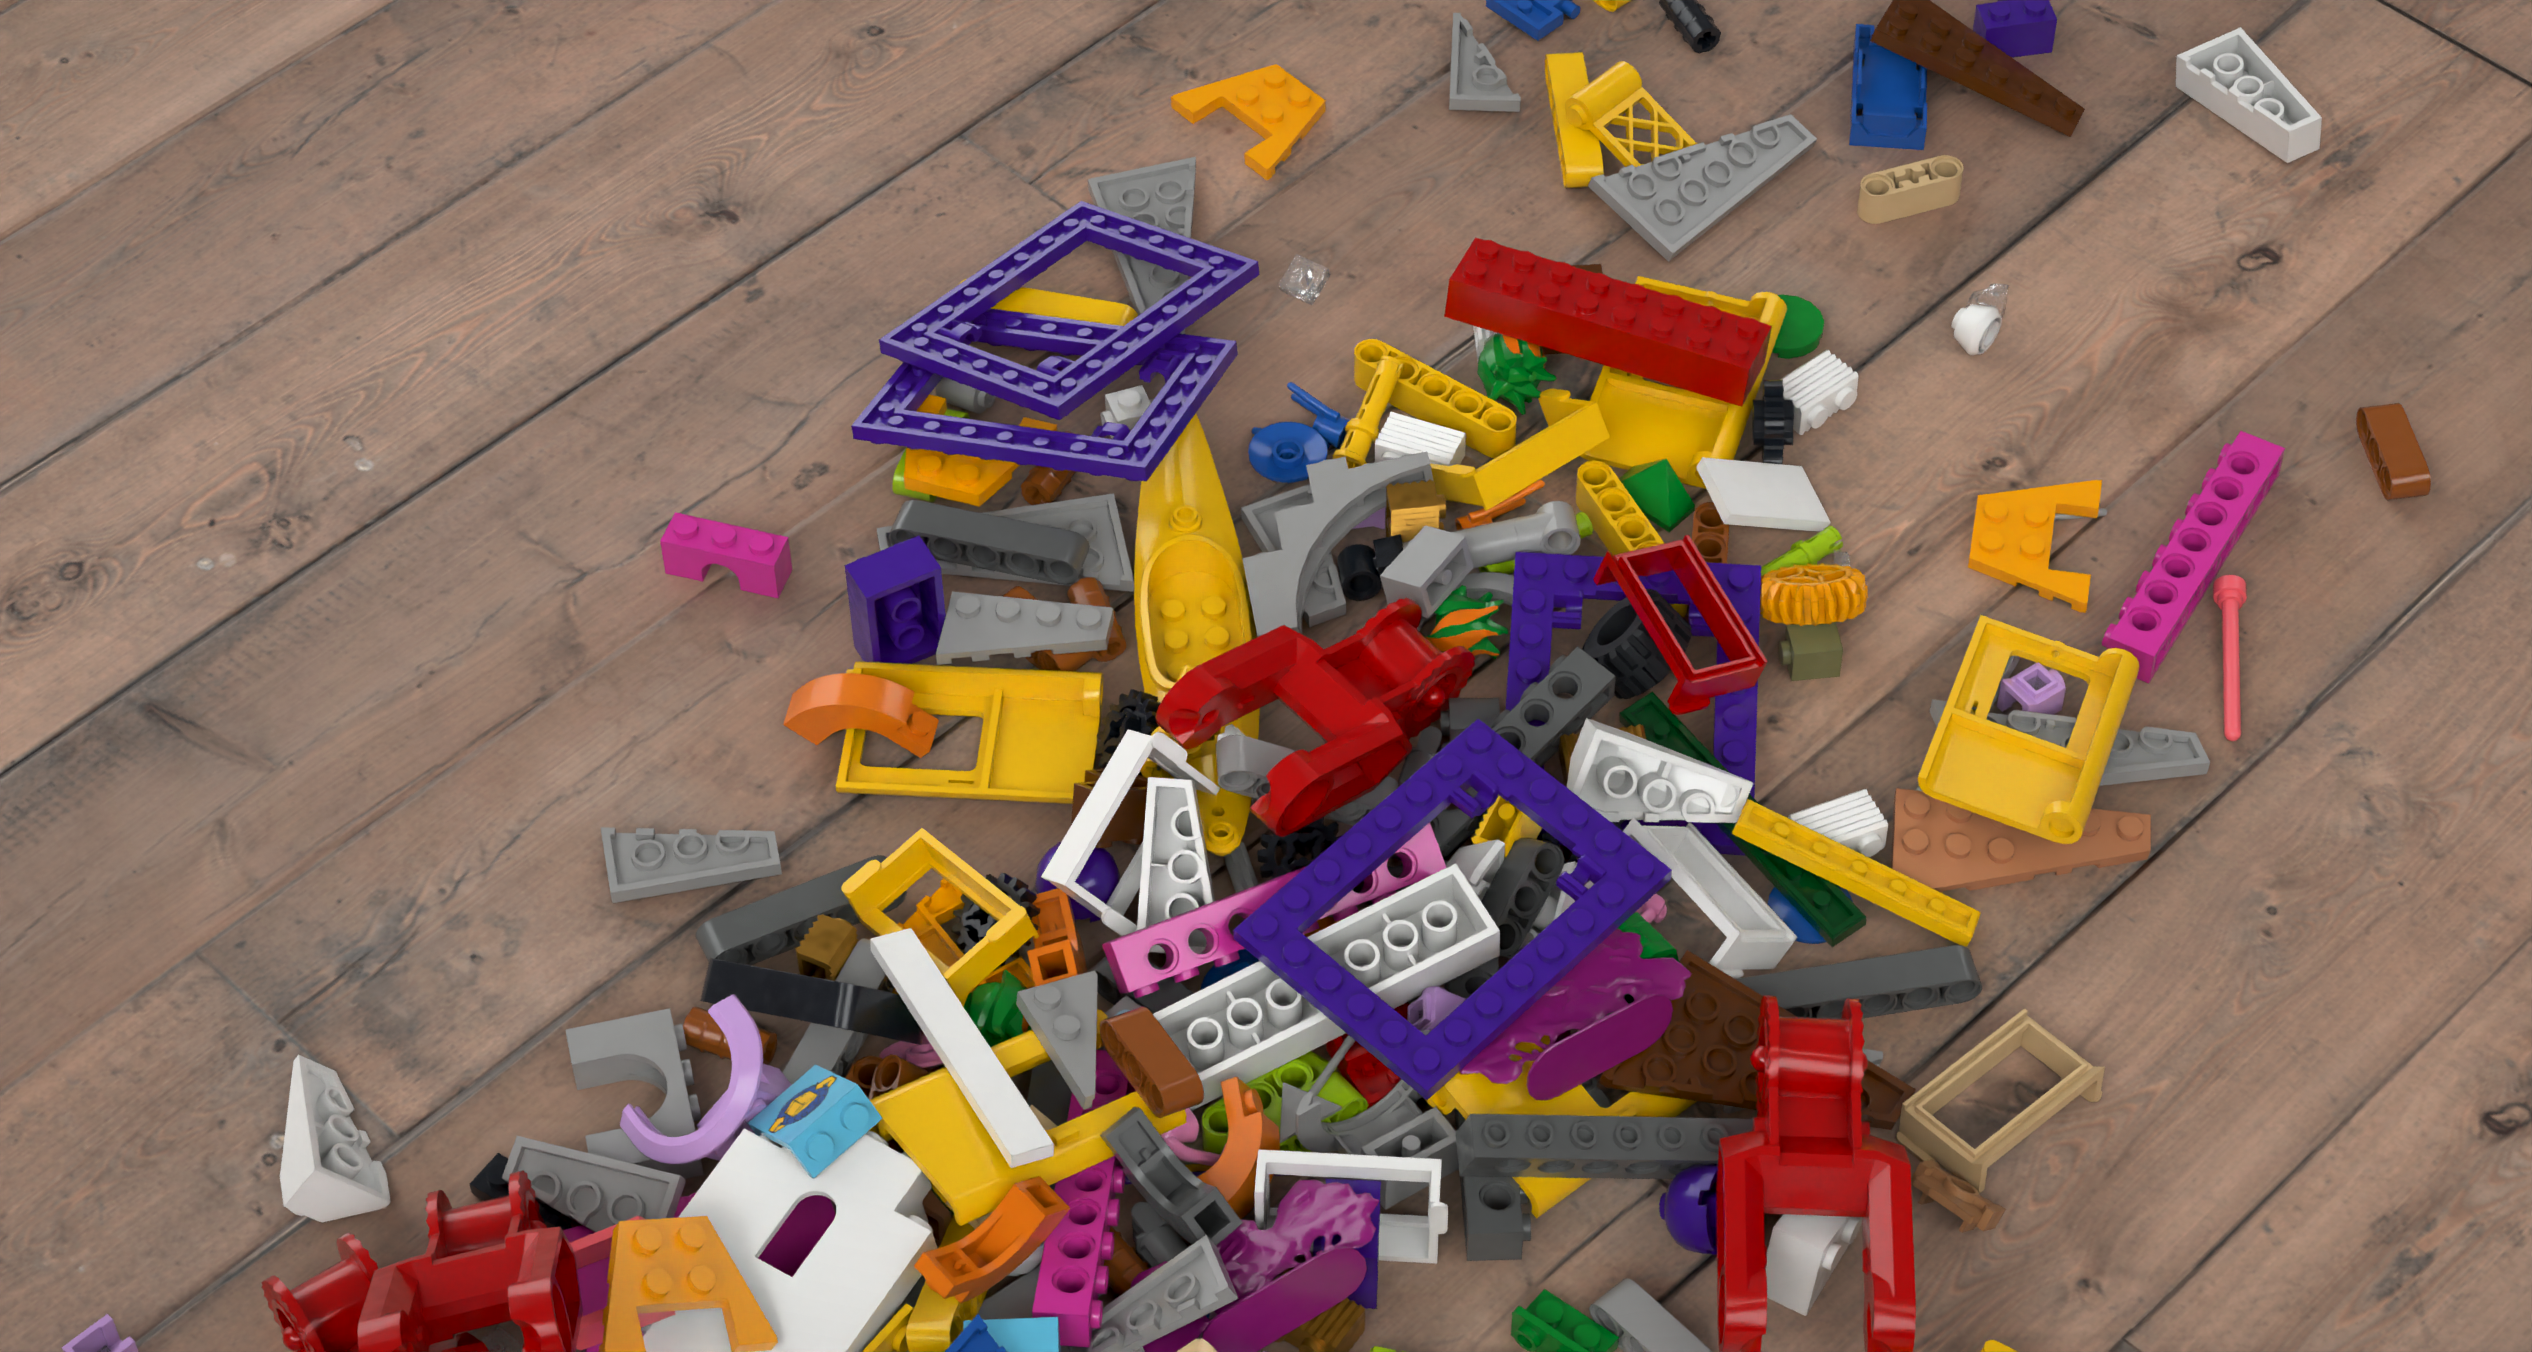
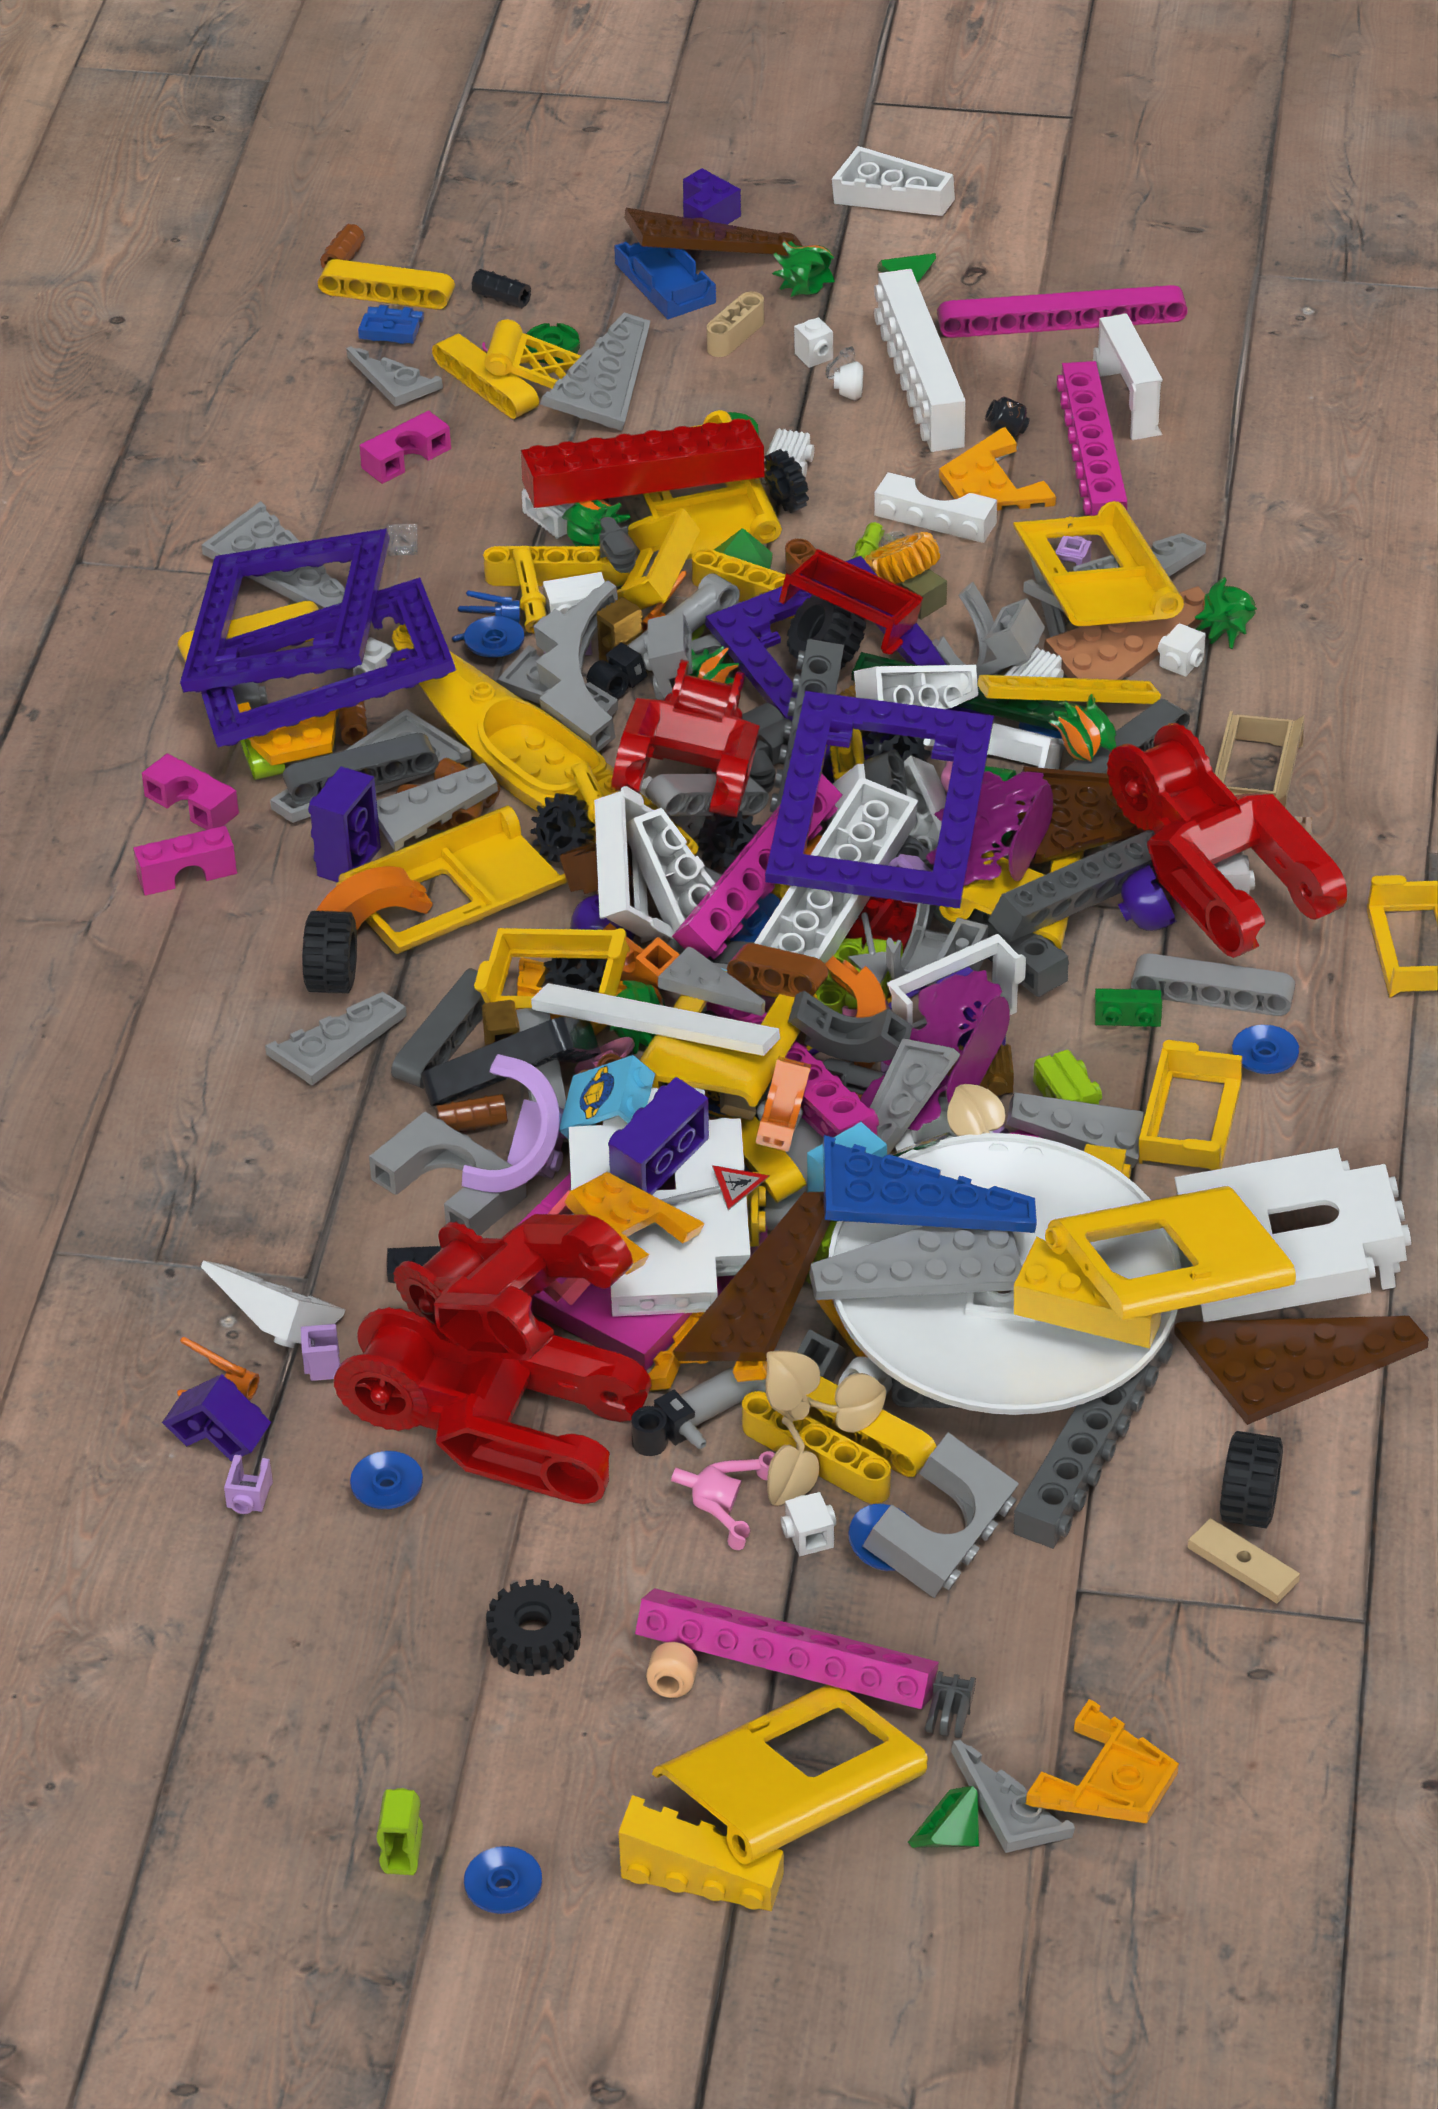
camera: 35 degrees left, 5 degrees down
(137, 1259) = (220, 1414): none -> dark purple brick
(210, 1225) = (245, 1380): none -> orange plant
(306, 1240) = (320, 1351): none -> lavender window
(594, 1187) = (486, 1216): light grey wing -> none
(748, 753) = (329, 952): none -> black tyre
(795, 1209) = (660, 1136): none -> dark purple brick
(816, 497) = (209, 800): none -> dark pink arch
(852, 1312) = (732, 1184): none -> piece
(1265, 101) = (269, 453): light orange wing -> none
(1433, 158) = (421, 435): none -> dark pink arch
(1497, 410) = (616, 545): none -> dark grey arm
(1695, 110) = (559, 335): none -> green tile
(1762, 494) = (814, 524): white tile -> none
(1817, 940) = (1085, 730): none -> green hair
(1829, 771) = (1002, 641): none -> light grey piece
(1954, 576) = (964, 517): none -> white arch
(1977, 256) = (813, 342): none -> white brick
(2048, 156) = (804, 268): none -> green hair
(2053, 891) = (1182, 649): none -> white brick
(2071, 343) = (920, 360): none -> white brick
(2119, 468) = (1007, 414): none -> black head
(2142, 870) = (1226, 611): none -> green hair
(2181, 215) = (918, 264): none -> green slope
(2230, 595) = (1132, 455): coral piece -> none
(2304, 493) = (1125, 354): none -> white piece
(2315, 359) = (1059, 311): none -> dark pink beam
(2393, 451) = (1161, 342): dark orange beam -> none

